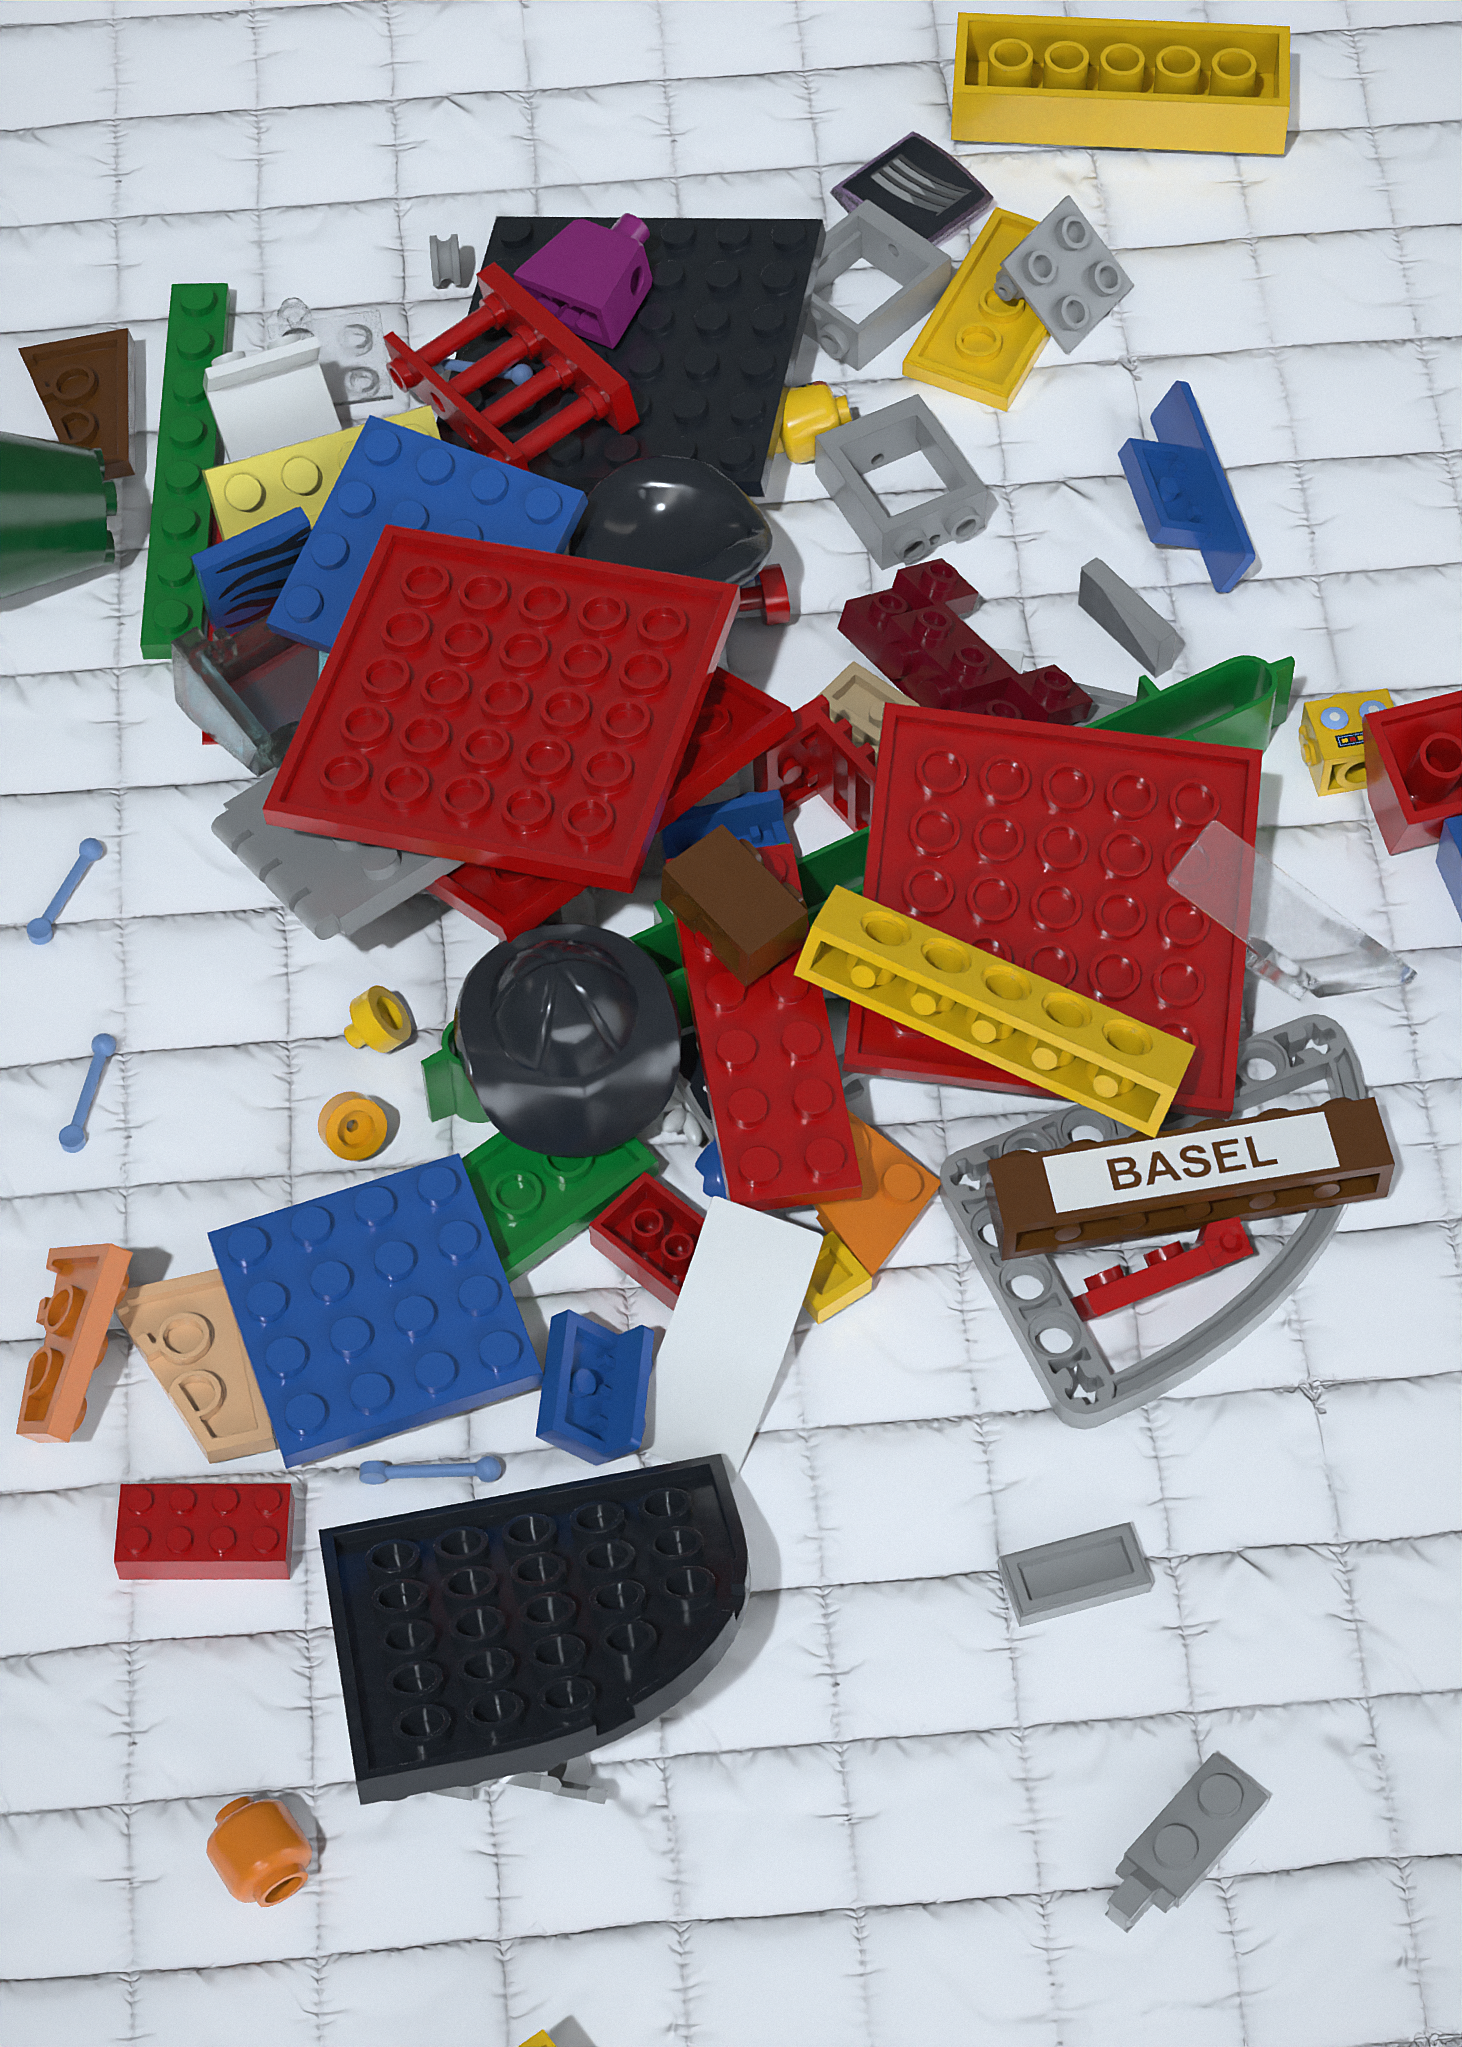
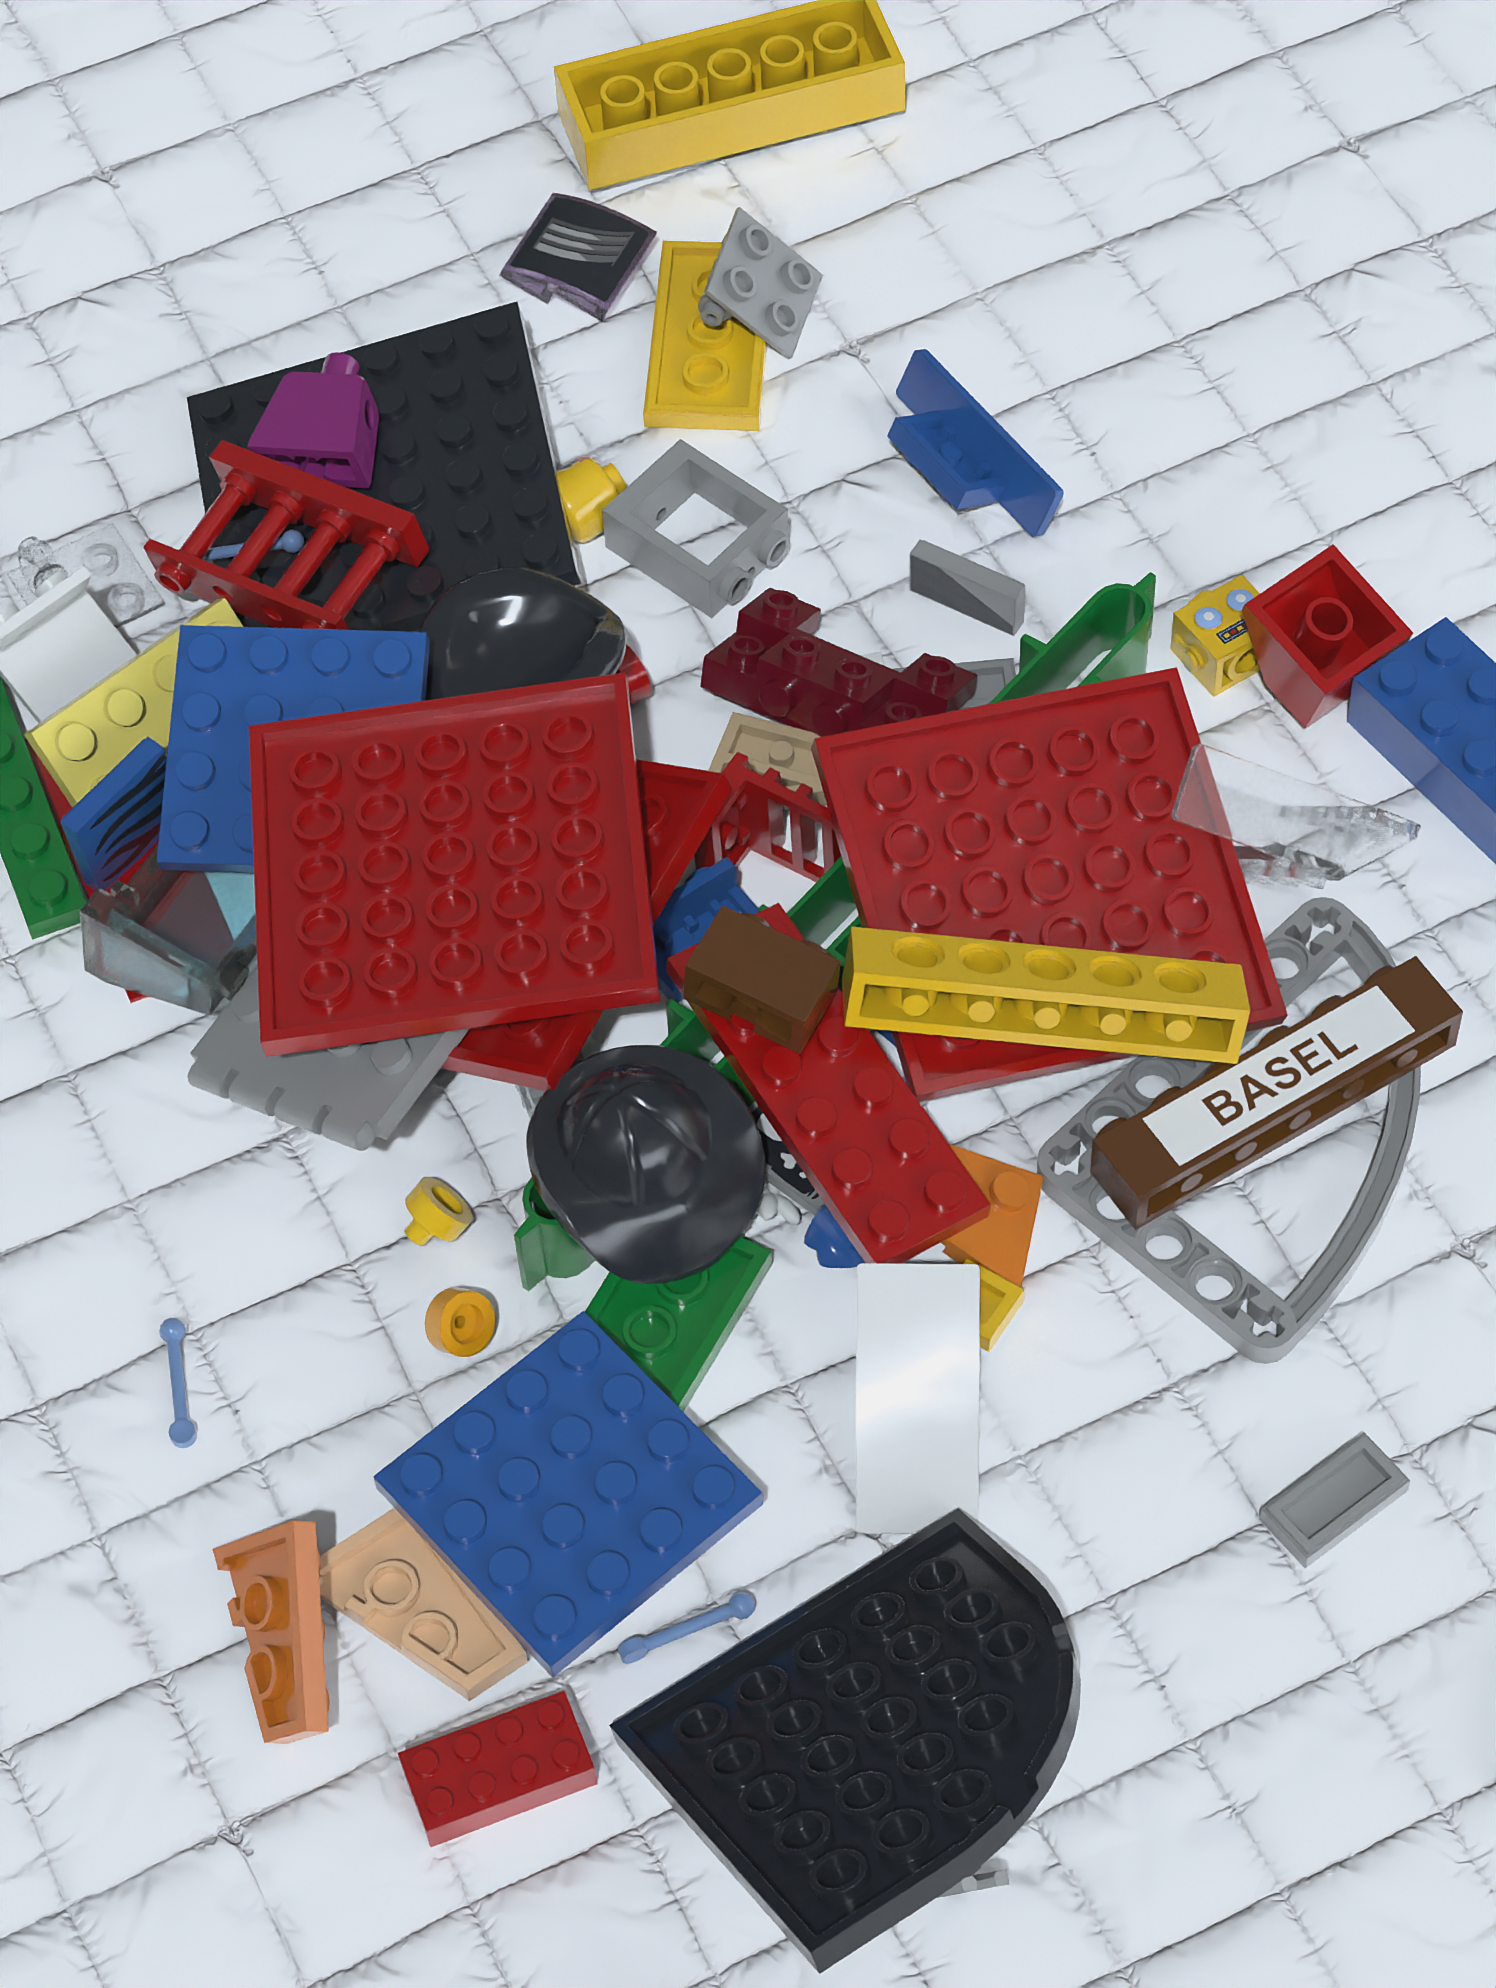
camera: 20 degrees left, 0 degrees up
(40, 929) = (54, 1238): medium blue hinge -> none
(445, 259) = (157, 454): light grey bush -> none
(594, 1388) = (815, 1489): blue bracket -> none
(649, 1237) = (802, 1328): red piece -> none
(895, 251) = (616, 320): light grey window -> none
(1166, 1267) = (1289, 1186): red hinge -> none

